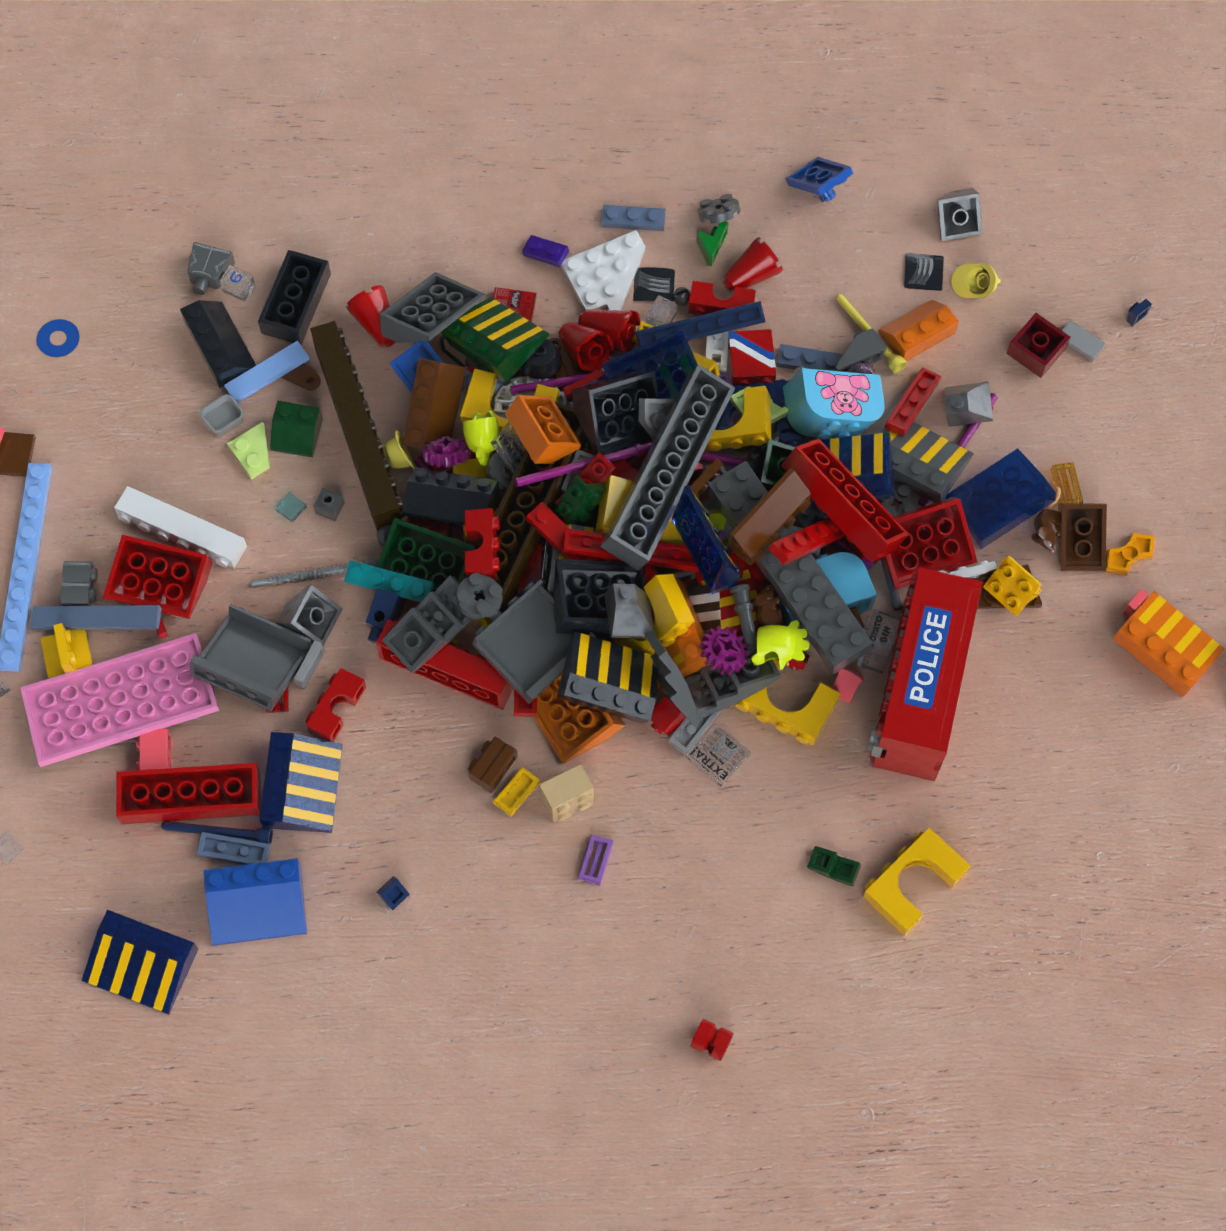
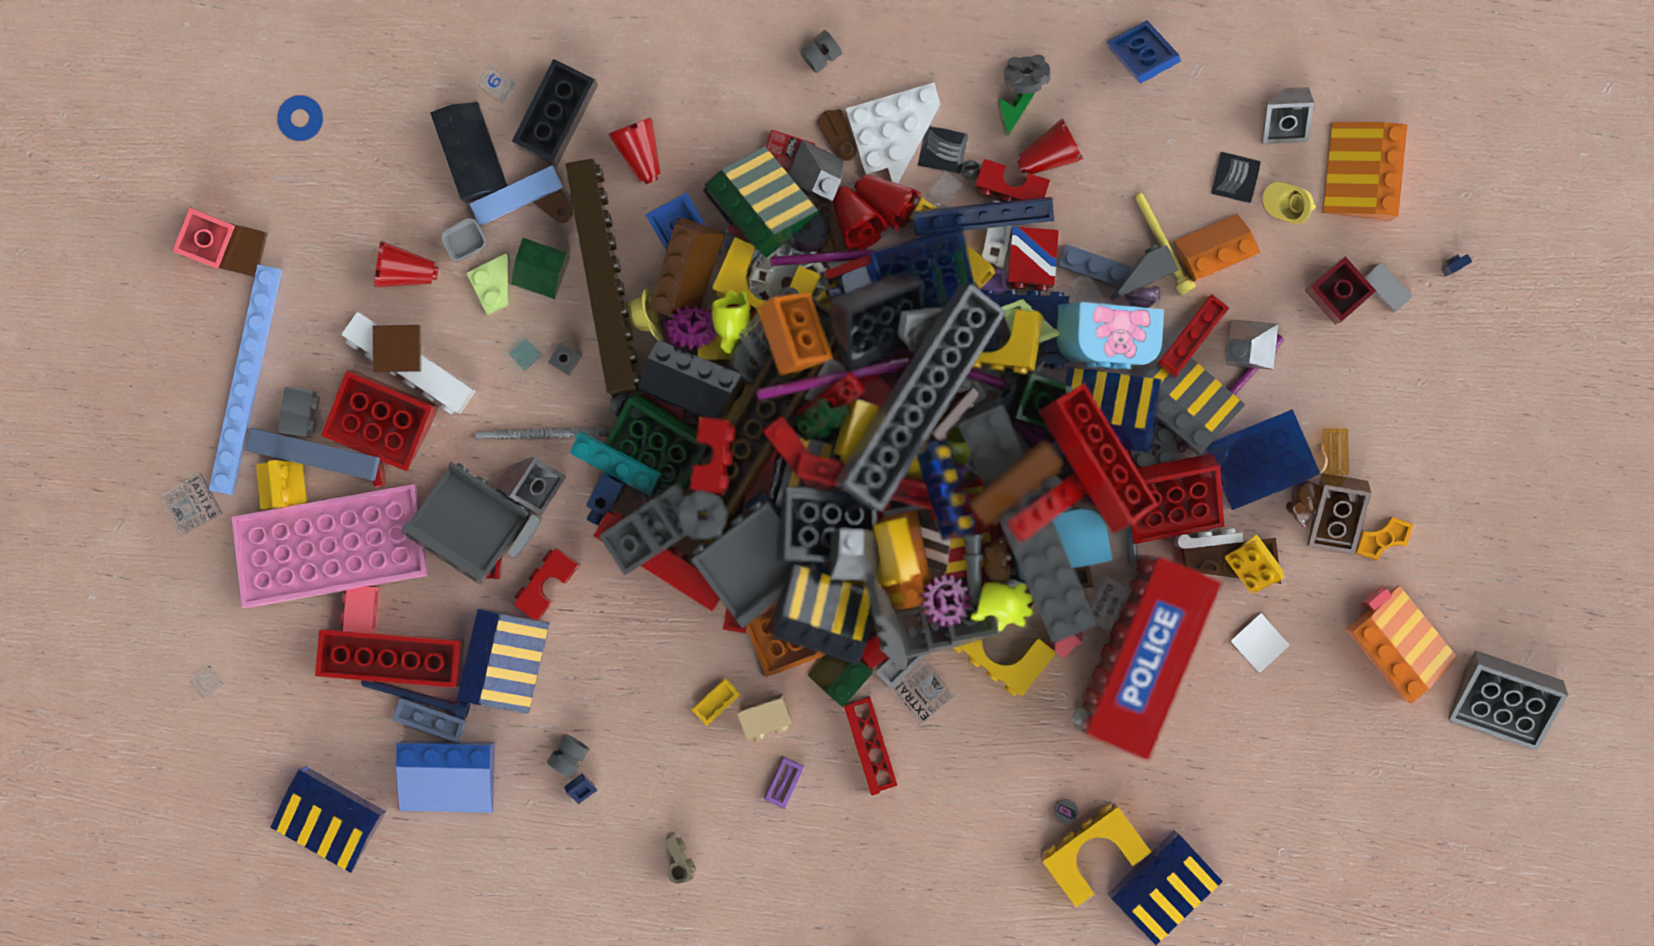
camera: 10 degrees right, 20 degrees up
(166, 444) = (402, 268): none -> red cone
(168, 510) = (396, 348): none -> reddish brown tile
(208, 266) = (466, 59): dark grey torso -> none
(375, 864) = (567, 757): none -> dark grey wheel
(428, 309) = (696, 158): dark grey slope -> none
(492, 764) = (695, 670): reddish brown brick -> none
(498, 937) = (677, 848): none -> dark tan plate
(529, 217) = (814, 57): none -> dark grey wheel
(542, 312) = (816, 171): none -> flat silver slope
(545, 251) = (832, 93): dark purple plate -> none
(556, 285) = (837, 133): none -> reddish brown piece
(633, 218) = (933, 65): sand blue plate -> none
(636, 748) = (840, 678): none -> dark green slope
(667, 812) = (862, 749): none -> red fence
(833, 866) = (1017, 824): dark green slope -> none
(879, 846) = (1066, 811): none -> dark grey tile
(993, 903) = (1165, 887): none -> clear blue slope
(1034, 663) = (1260, 643): none -> white sticker
(1038, 247) = (1365, 169): none -> orange slope

